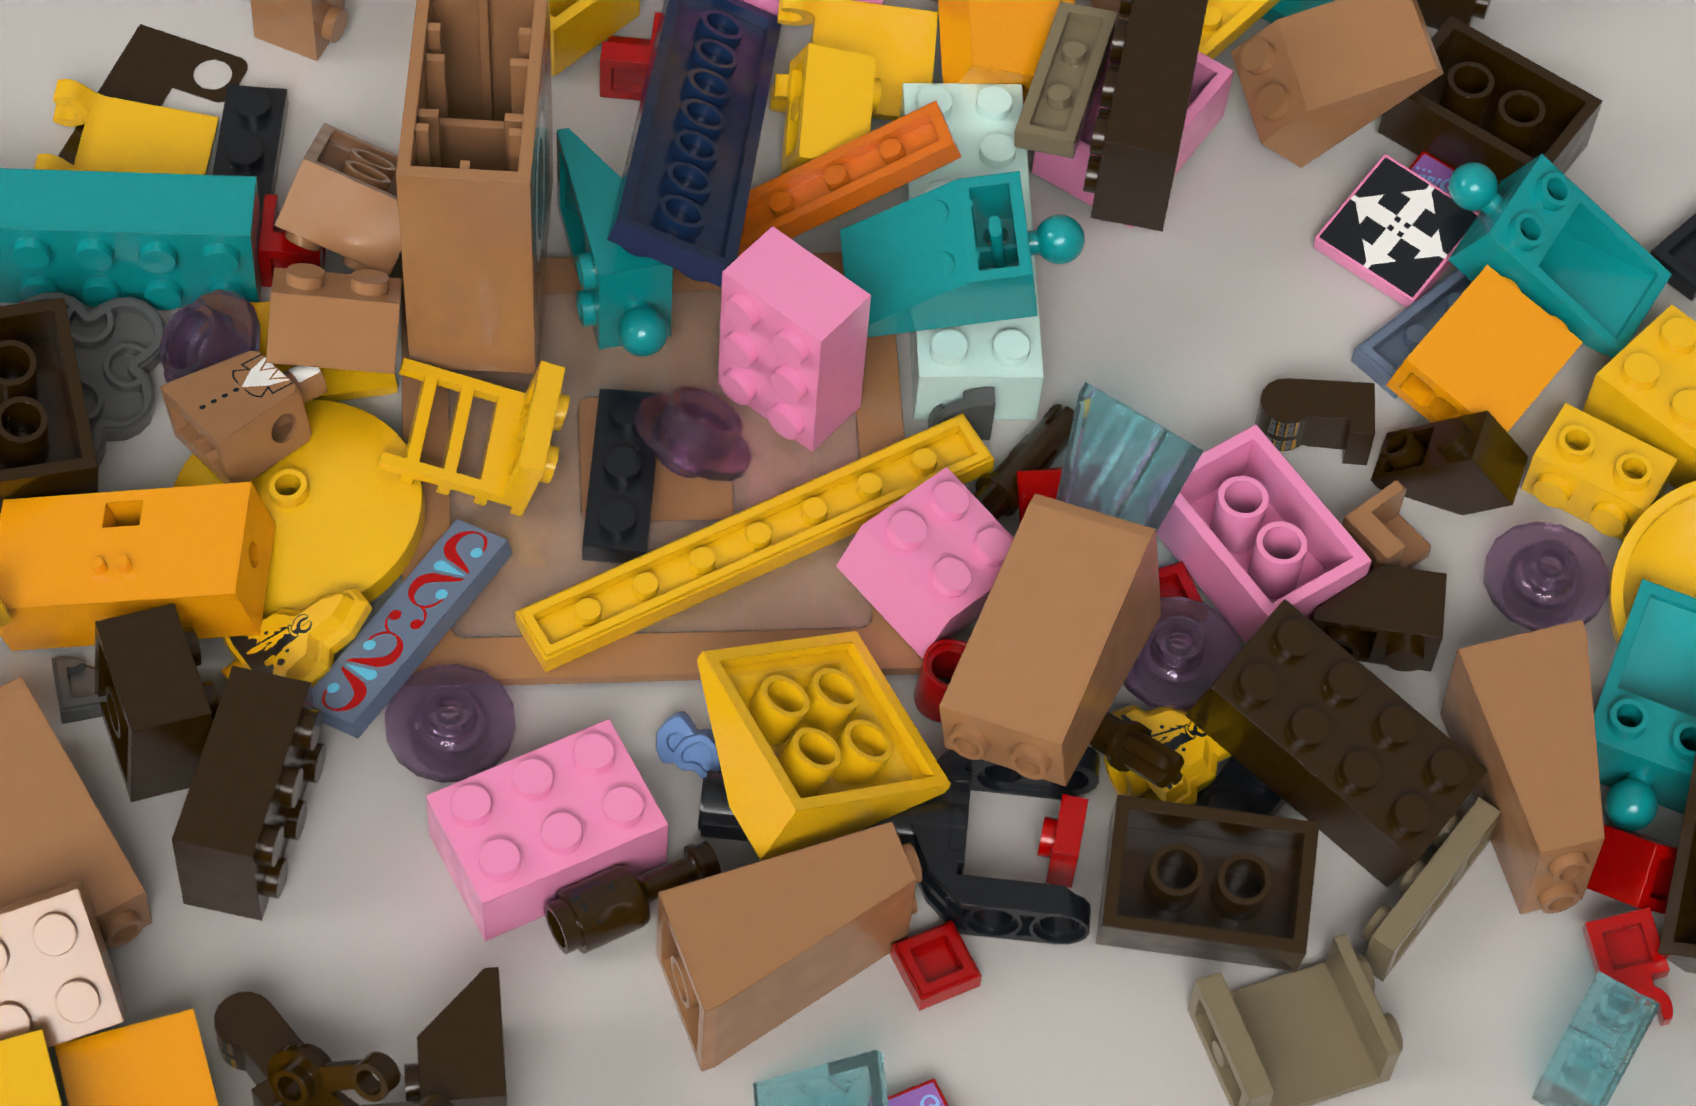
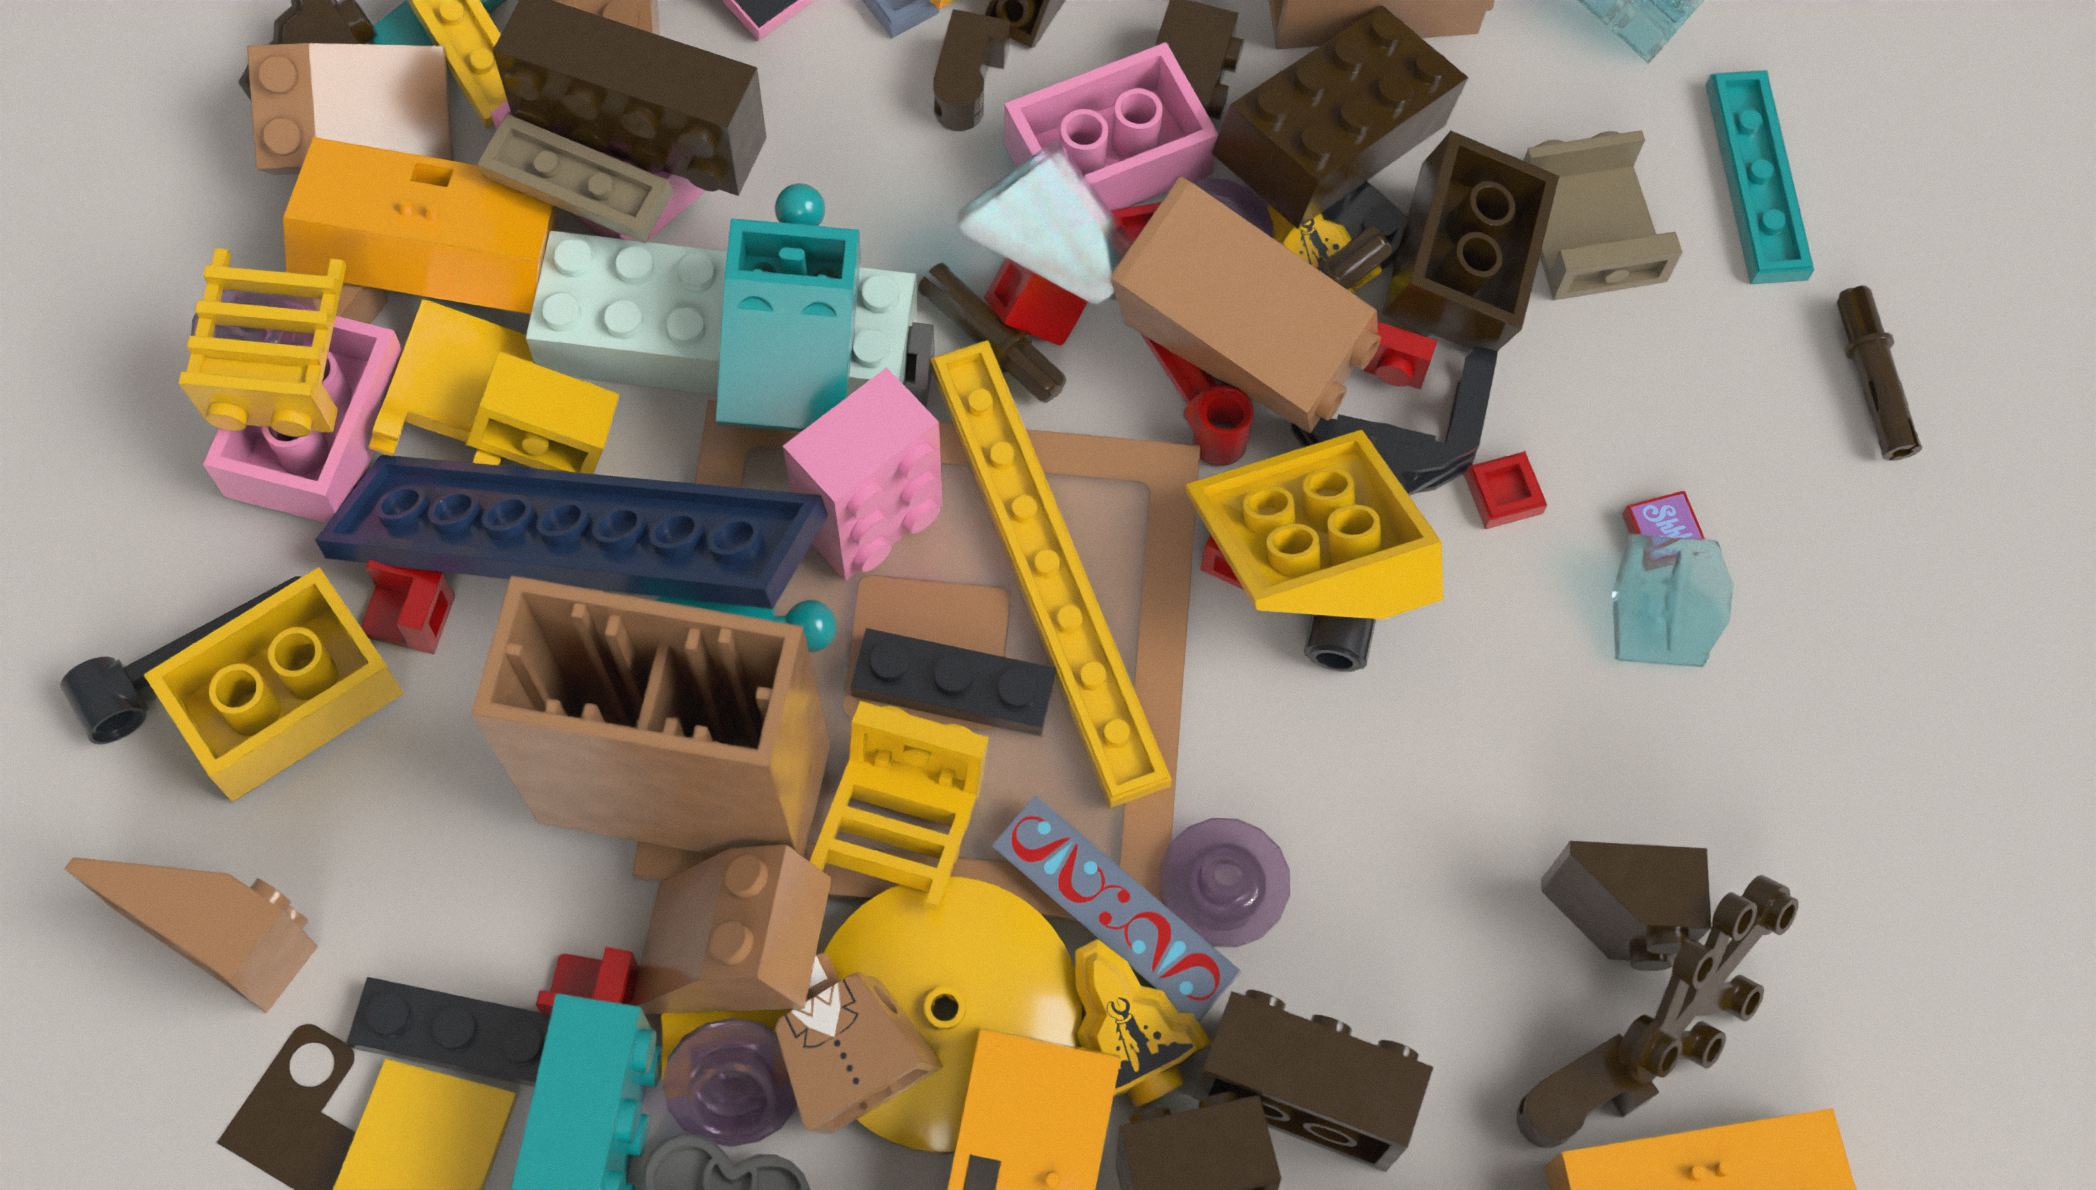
camera: 80 degrees left, 10 degrees up
(345, 201) = (569, 901): medium nougat slope -> none
(544, 826) = (1357, 802): bright pink brick -> none
(619, 901) = (1434, 748): dark brown piece -> none
(686, 746) = (1271, 654): medium blue piece -> none
(694, 434) = (933, 599): clear purple piece -> none
(781, 934) = (1510, 606): medium nougat slope -> none
(850, 175) = (640, 384): orange plate -> none
(928, 560) = (1107, 407): bright pink brick -> none
(1384, 532) = (1101, 41): medium nougat panel -> none
(1428, 886) = (1487, 98): dark tan plate -> none

